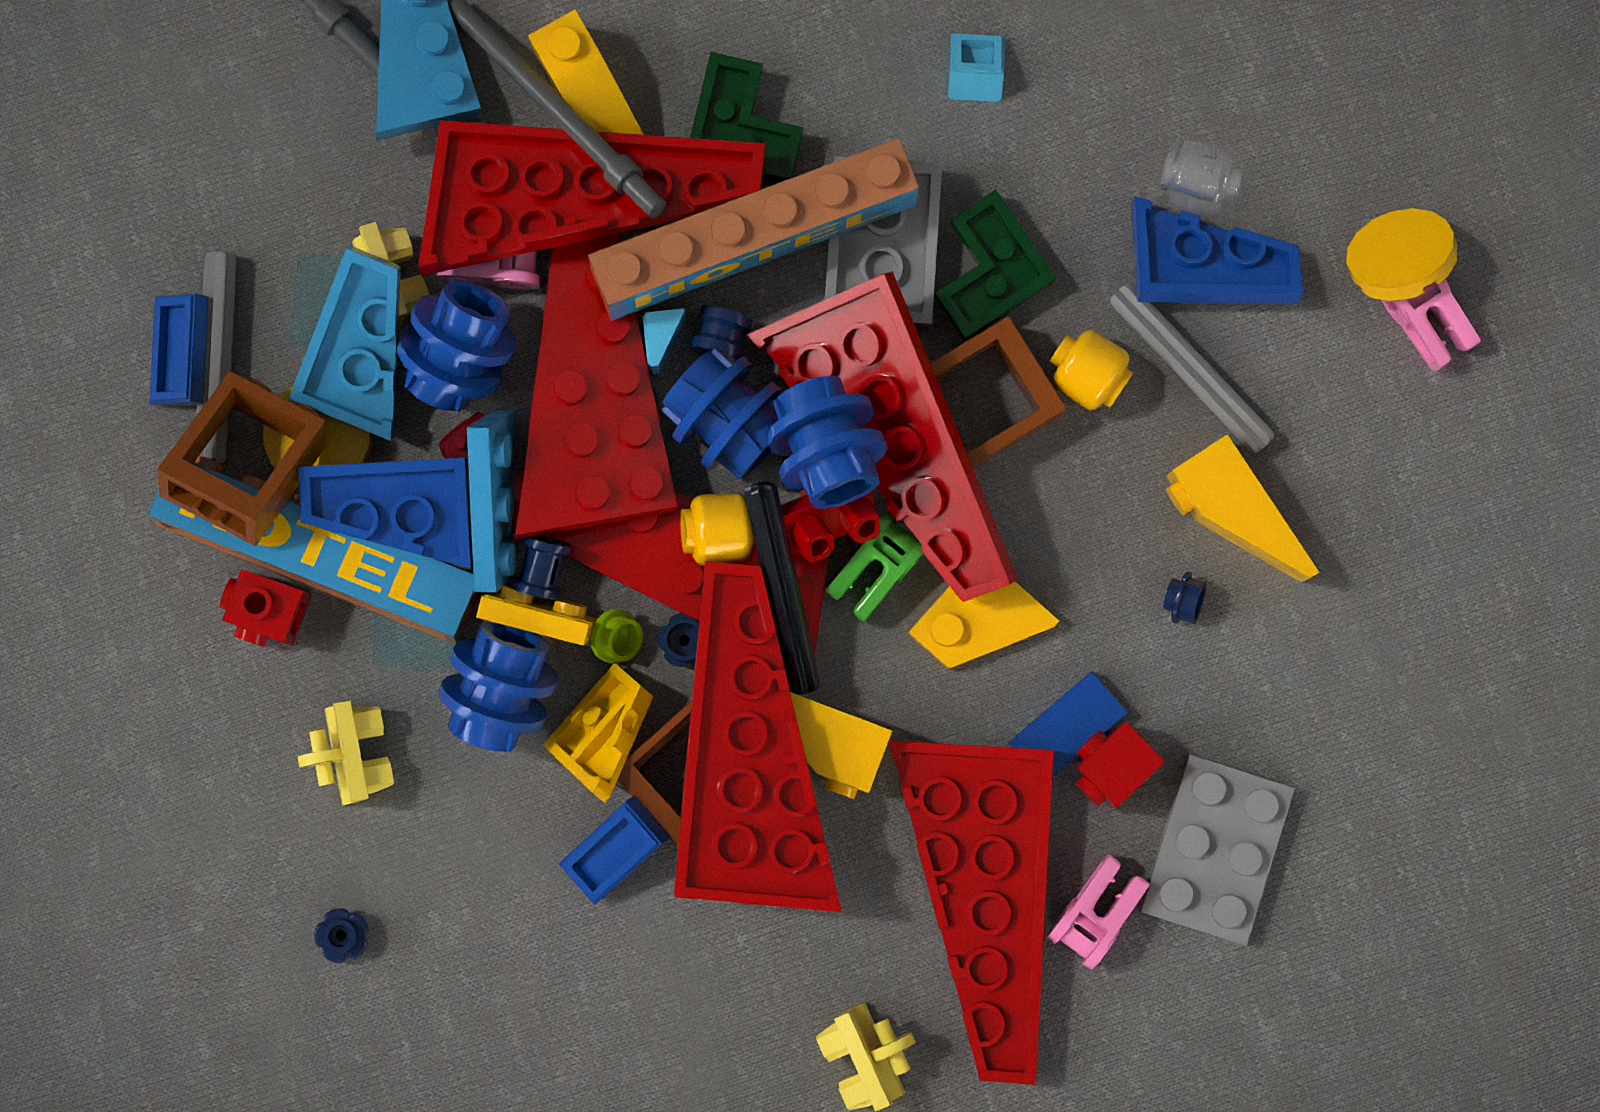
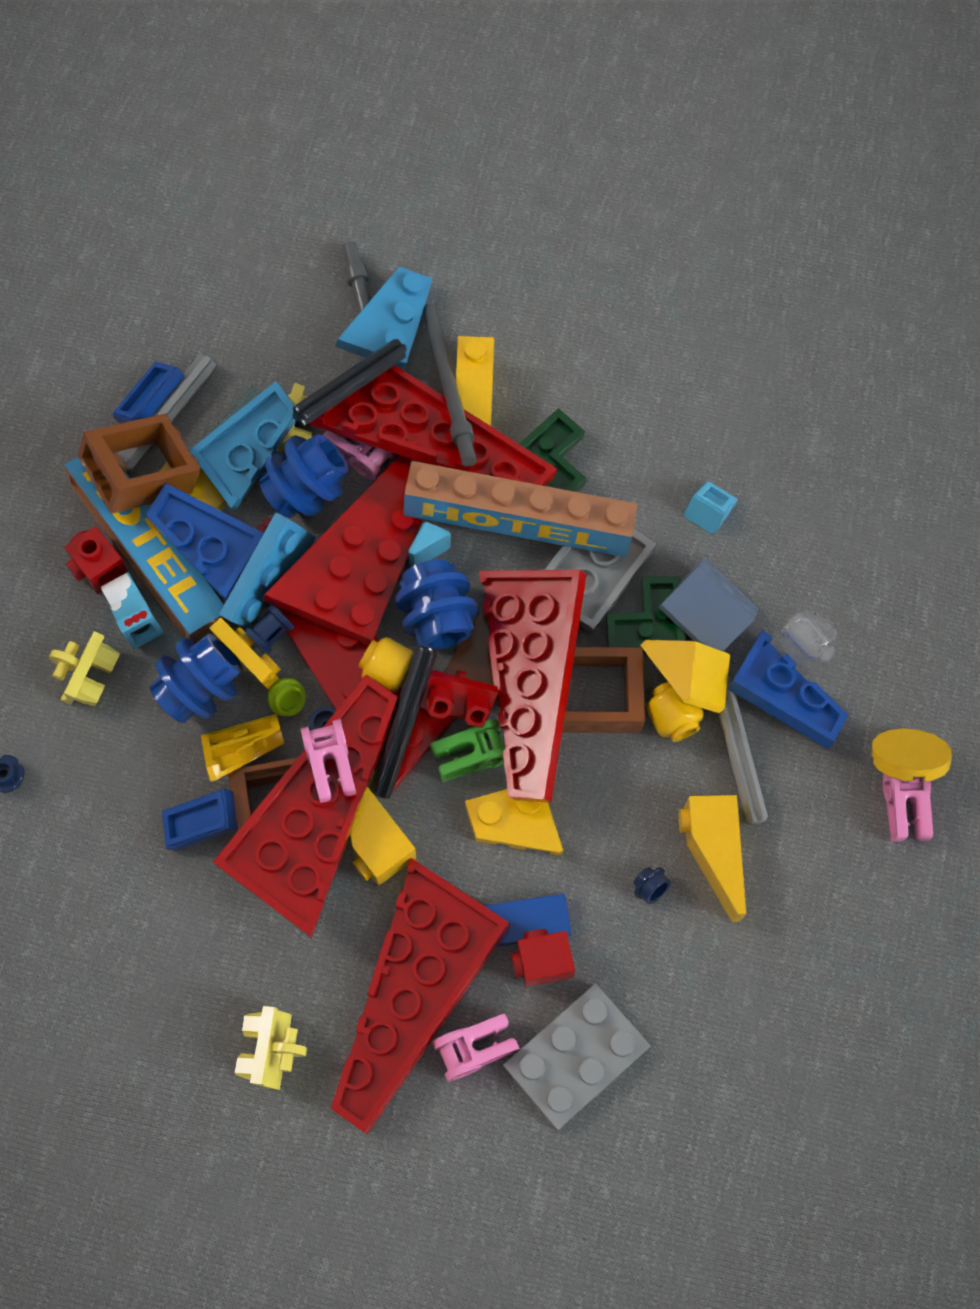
camera: 25 degrees right, 15 degrees down
(354, 644) = (131, 610): none -> medium azure leg
(436, 189) = (349, 382): none -> black axle
(716, 696) = (328, 744): none -> bright pink piece
(721, 330) = (467, 559): dark blue wheel -> none
(826, 442) = (483, 646): blue piece -> none
(1058, 209) = (709, 607): none -> sand blue slope
(1087, 314) = (692, 670): none -> yellow slope

